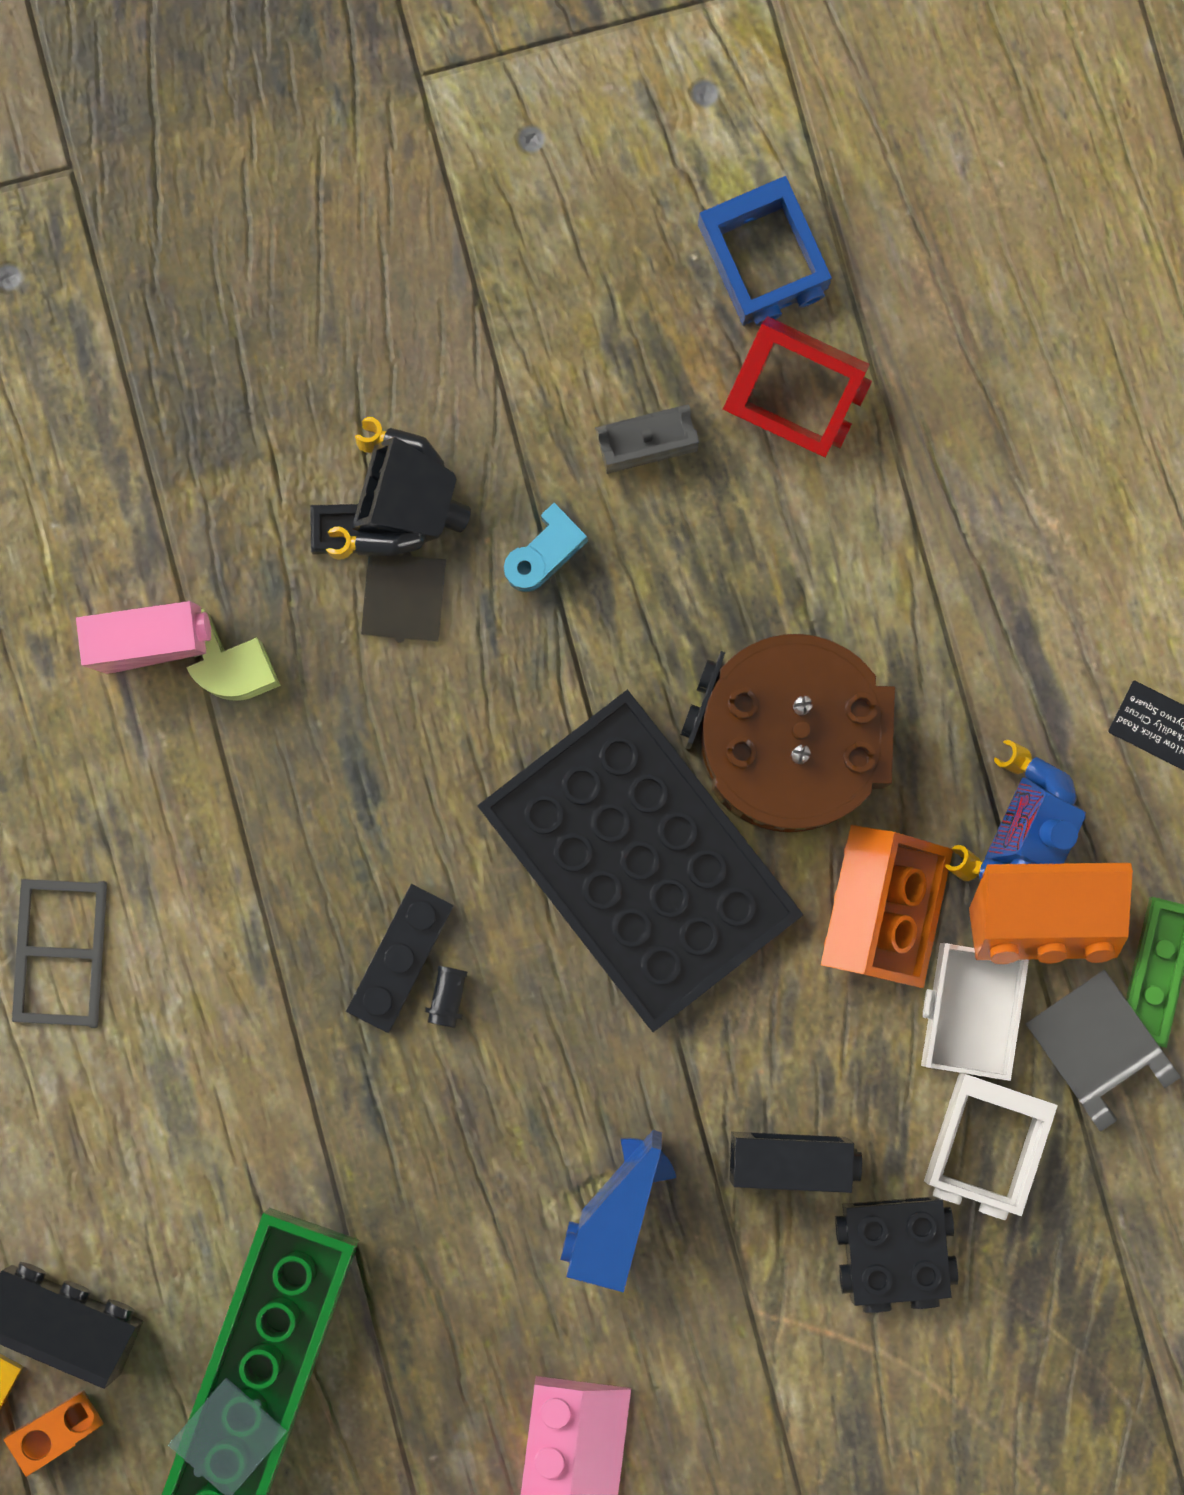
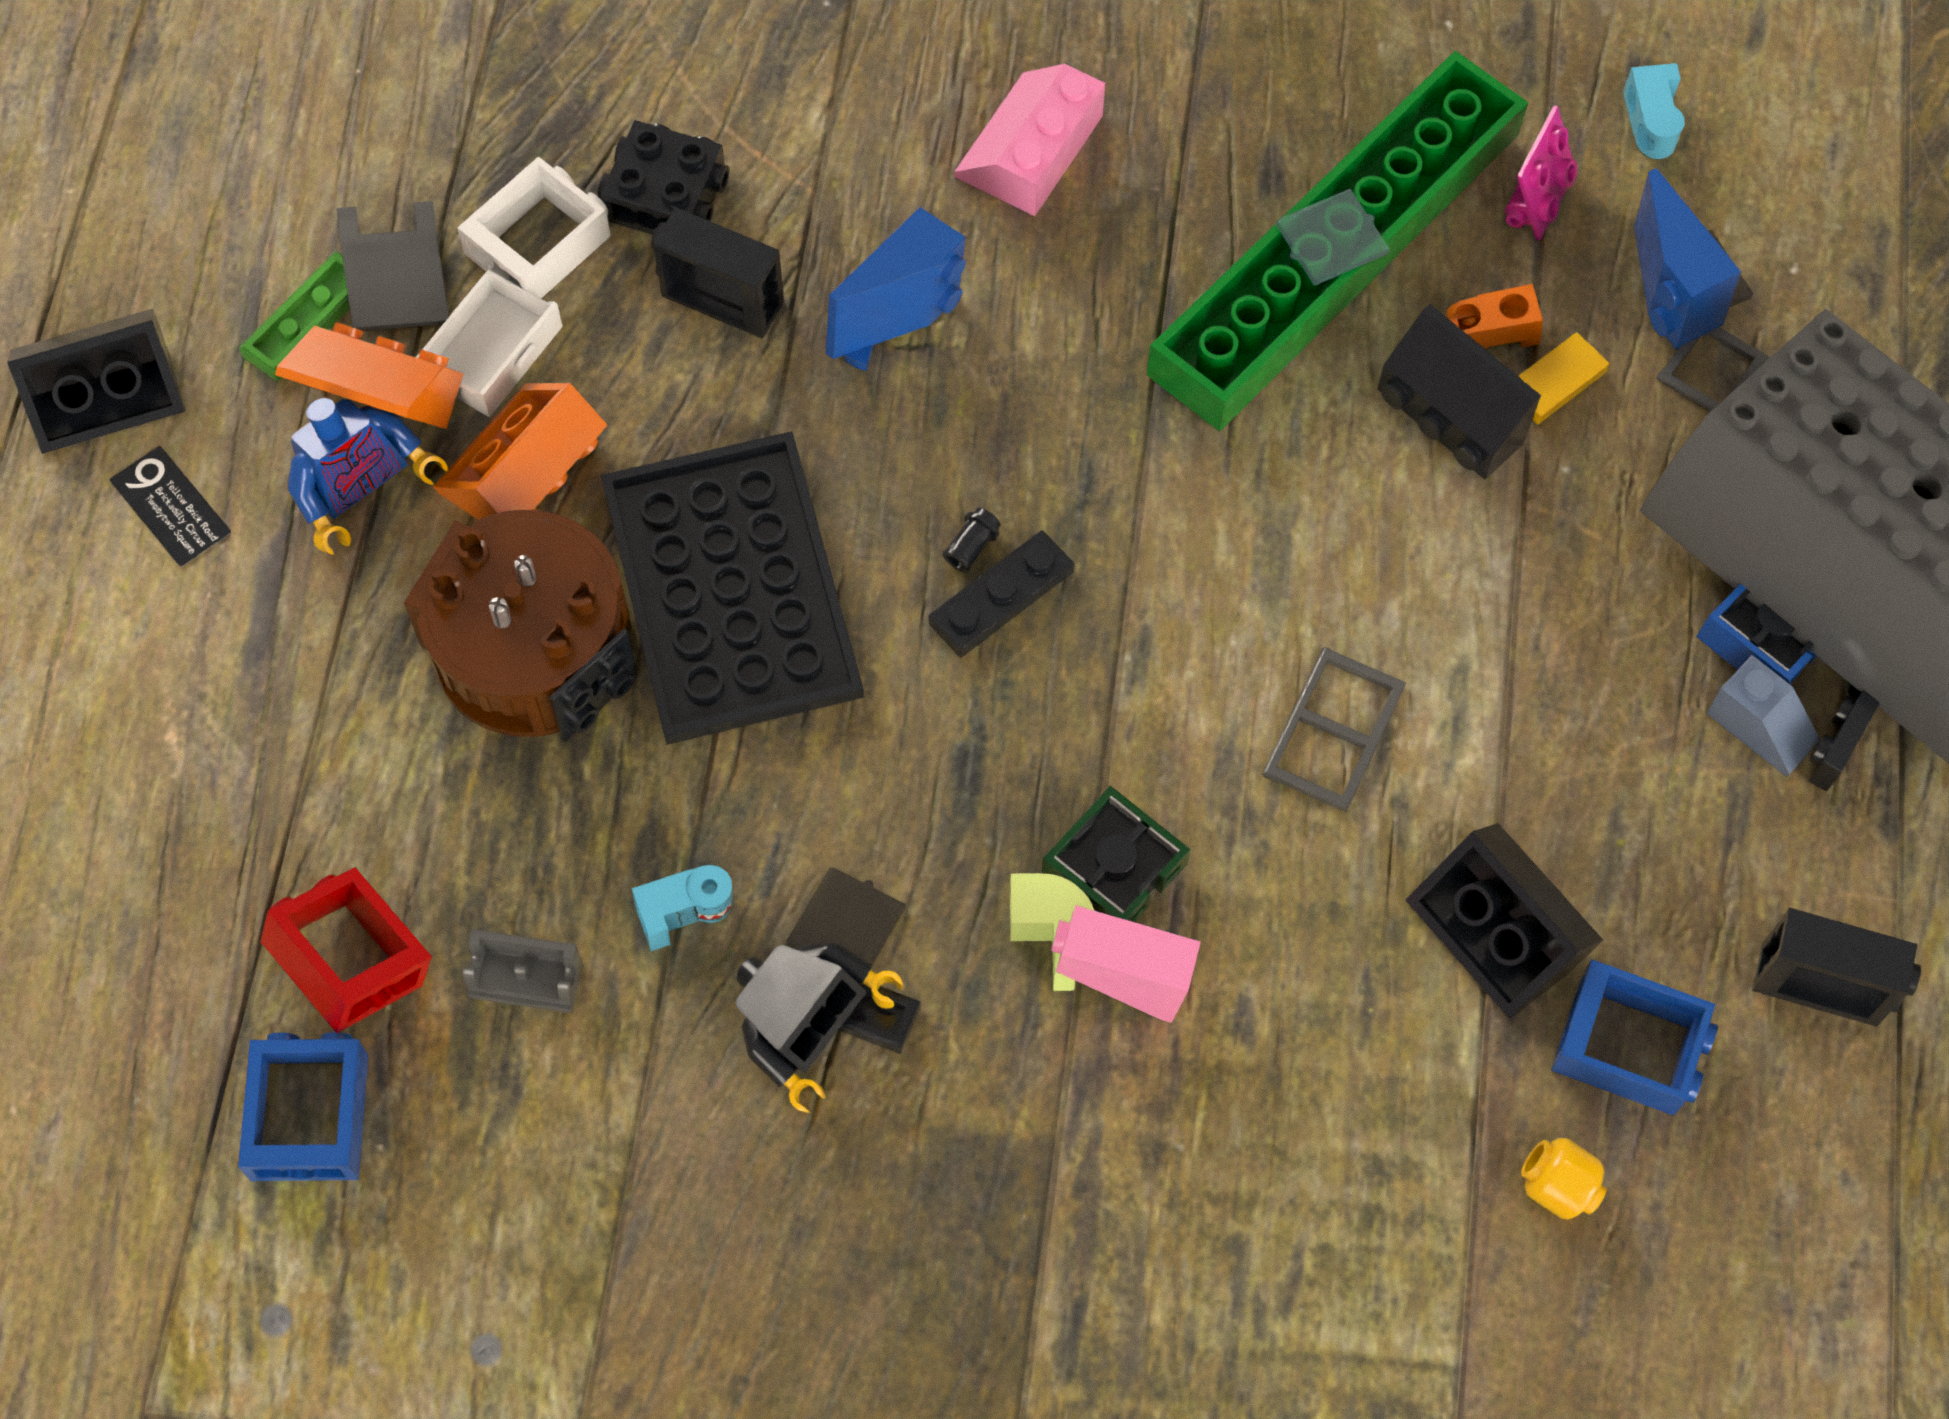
camera: 160 degrees left, 20 degrees down
(196, 737) = (1117, 856): none -> piece

